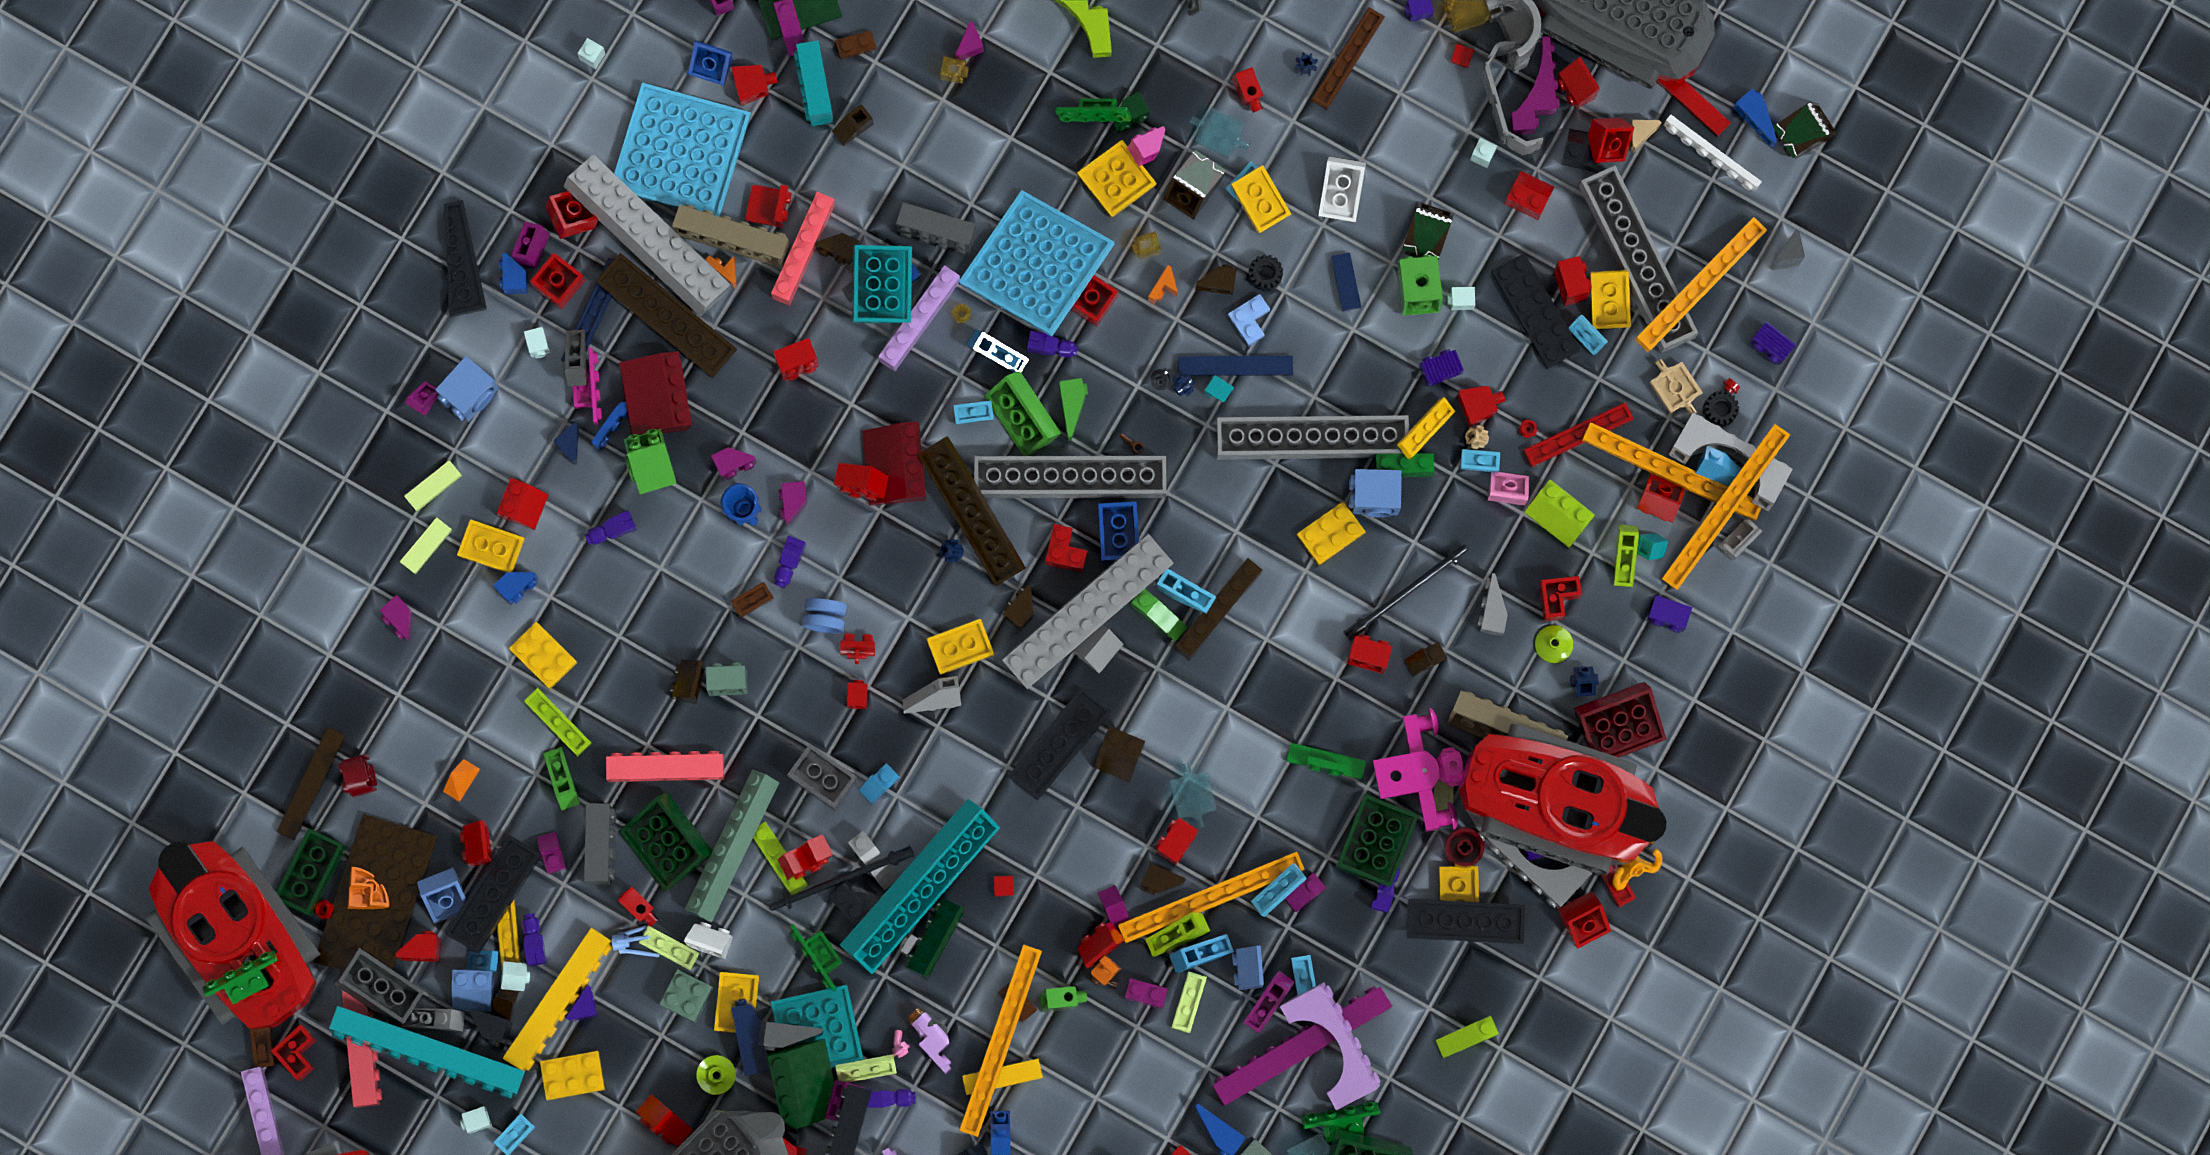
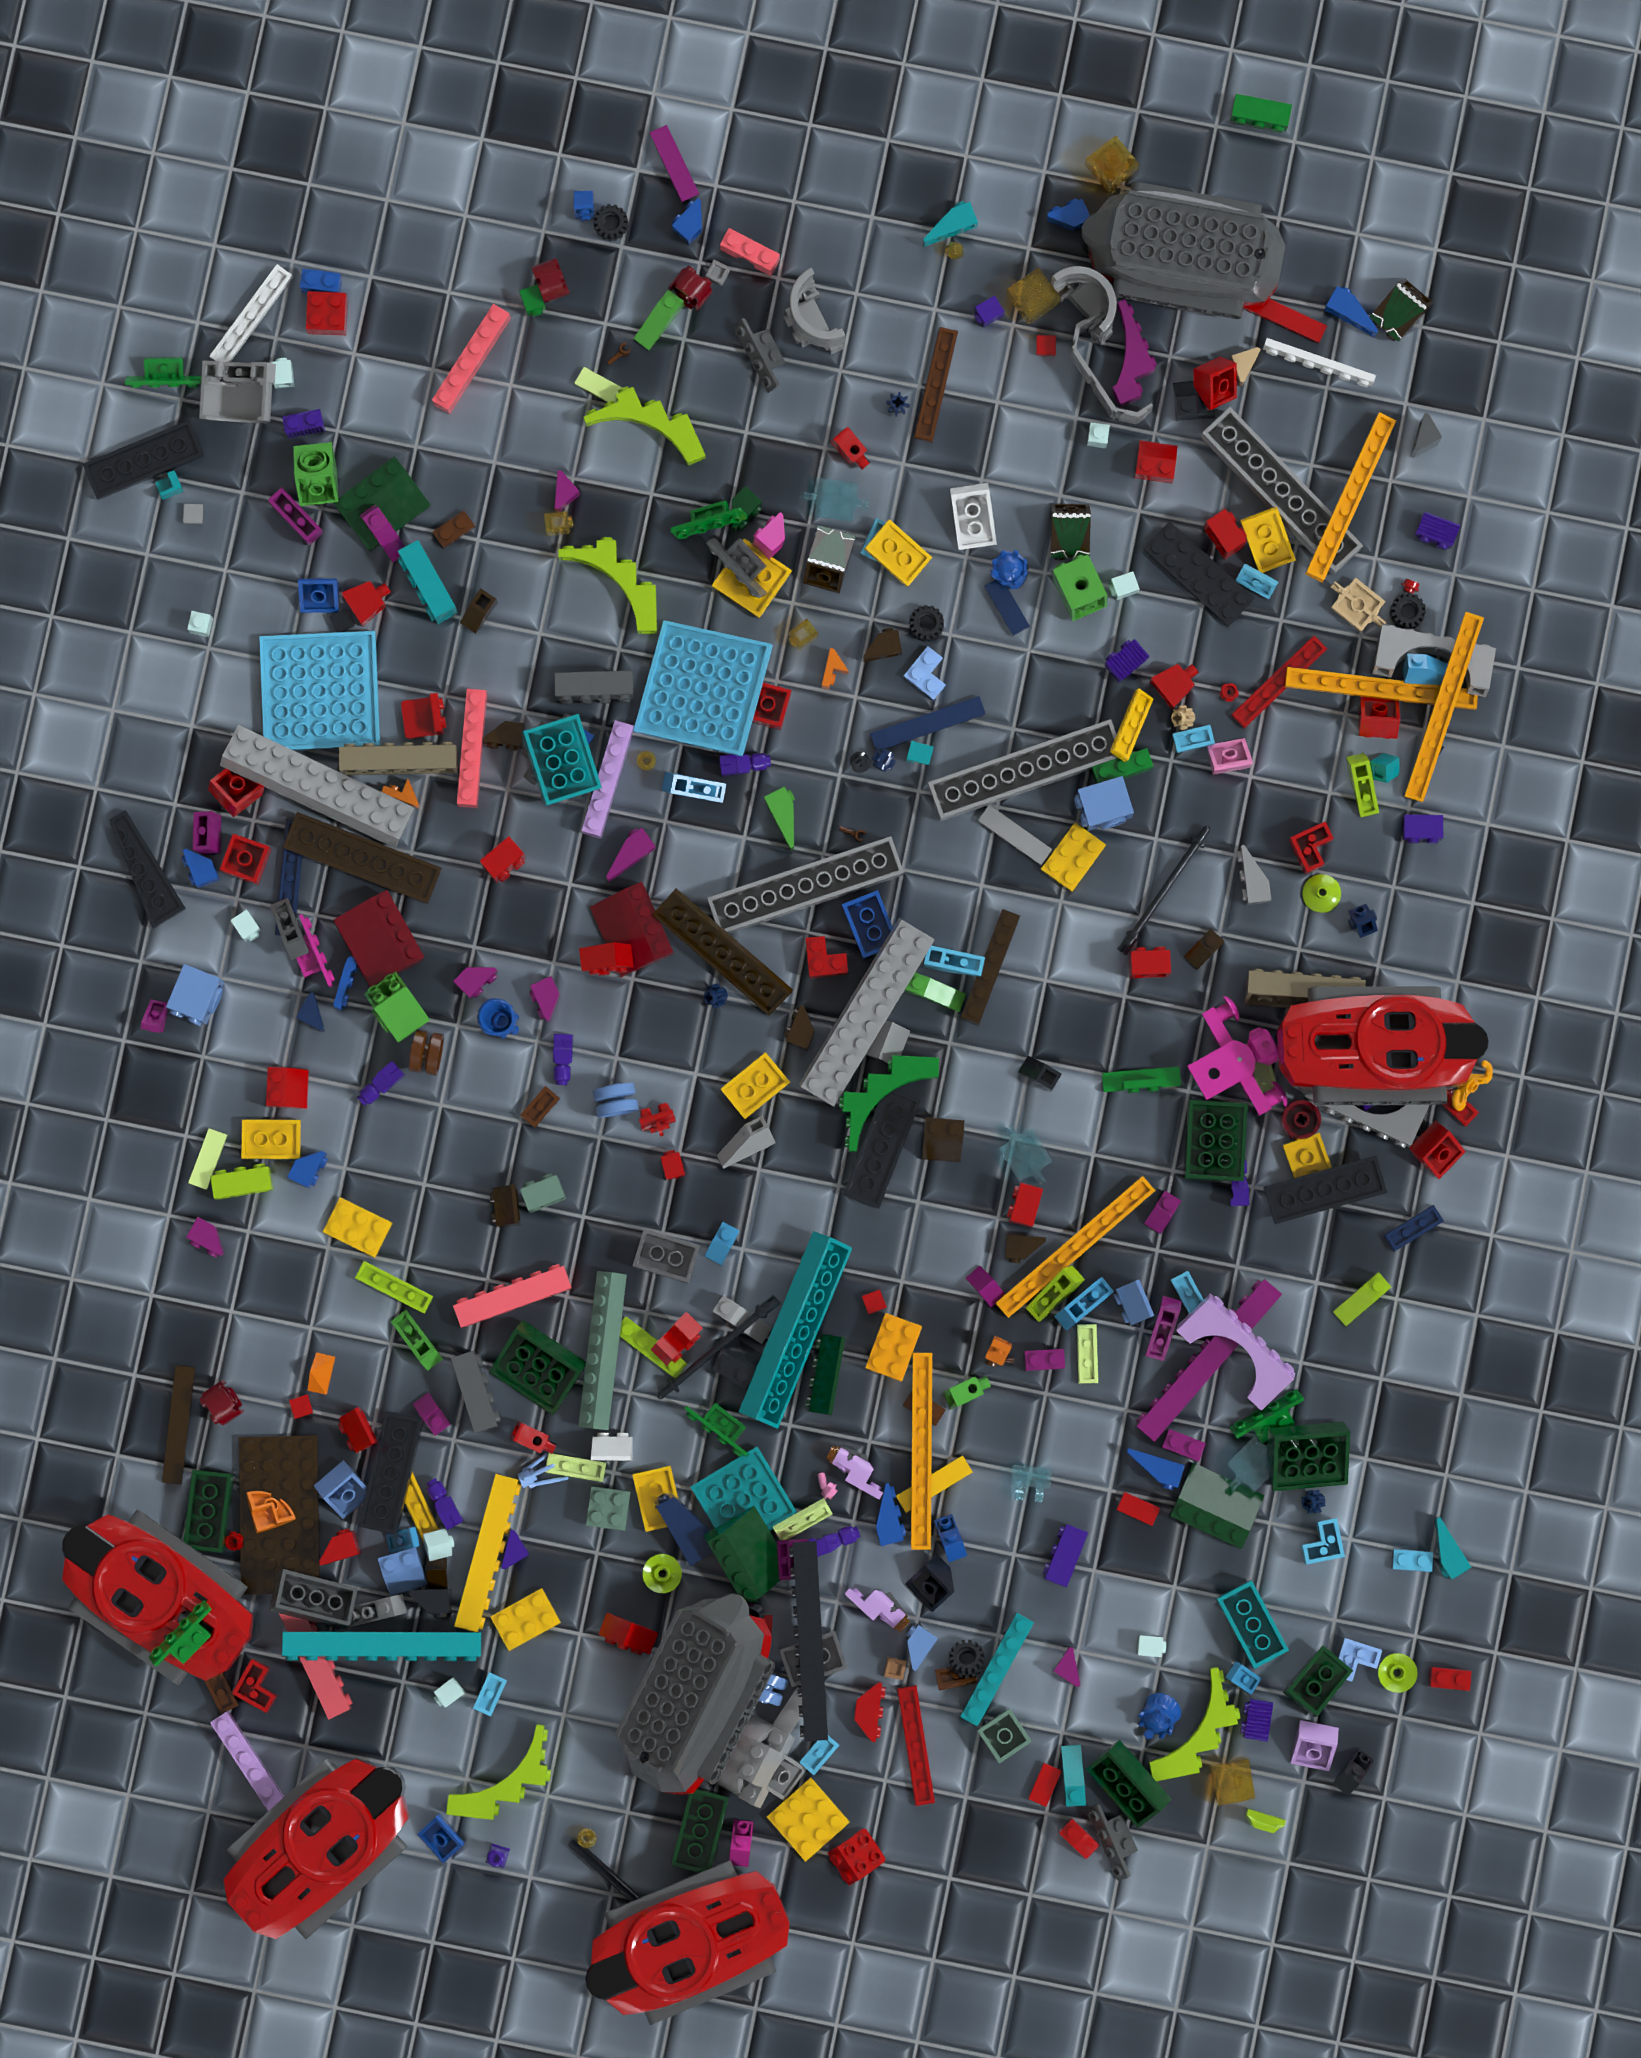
camera: 15 degrees left, 5 degrees up
(431, 805) = (301, 1406): none -> red tile
(433, 485) = (194, 1098): yellowish green tile -> none
(449, 577) = (241, 1182): none -> lime brick
(663, 513) = (425, 1052): none -> reddish brown wheel
(723, 94) = (342, 621): none -> black tile
(782, 1035) = (713, 1516): dark grey slope -> none
(908, 944) = (802, 1388): light grey plate -> none
(919, 392) = (633, 850): none -> magenta slope
(945, 1099) = (888, 1525): none -> blue slope
(973, 412) = (690, 854): medium azure plate -> none
(985, 116) = (604, 559): none -> lime arch
(1007, 934) = (893, 1347): none -> light orange brick
(1022, 414) = (738, 840): bright green slope -> none
(1075, 684) = (903, 1071): none -> green arch
(1096, 1101) = (1030, 1477): none -> clear light blue plate
(1099, 944) = (985, 1328): red slope -> none
(1112, 160) = (742, 562): none -> dark grey bracket
(1232, 723) = (1040, 1073): none -> black slope
(1251, 1118) = (1183, 1445): none -> magenta brick
(1278, 889) = (1137, 1218): medium azure plate -> none
(1283, 495) = (1015, 835): none -> light grey tile
(1360, 248) = (1010, 569): none -> blue hair
(1538, 986) = (1413, 1228): none -> dark blue tile
(1559, 513) = (1286, 765): lime slope -> none
(1578, 84) = (1167, 337): red slope -> none
(1621, 721) = (1410, 948): dark red slope -> none
(1740, 539) = (1466, 732): light grey hinge -> none

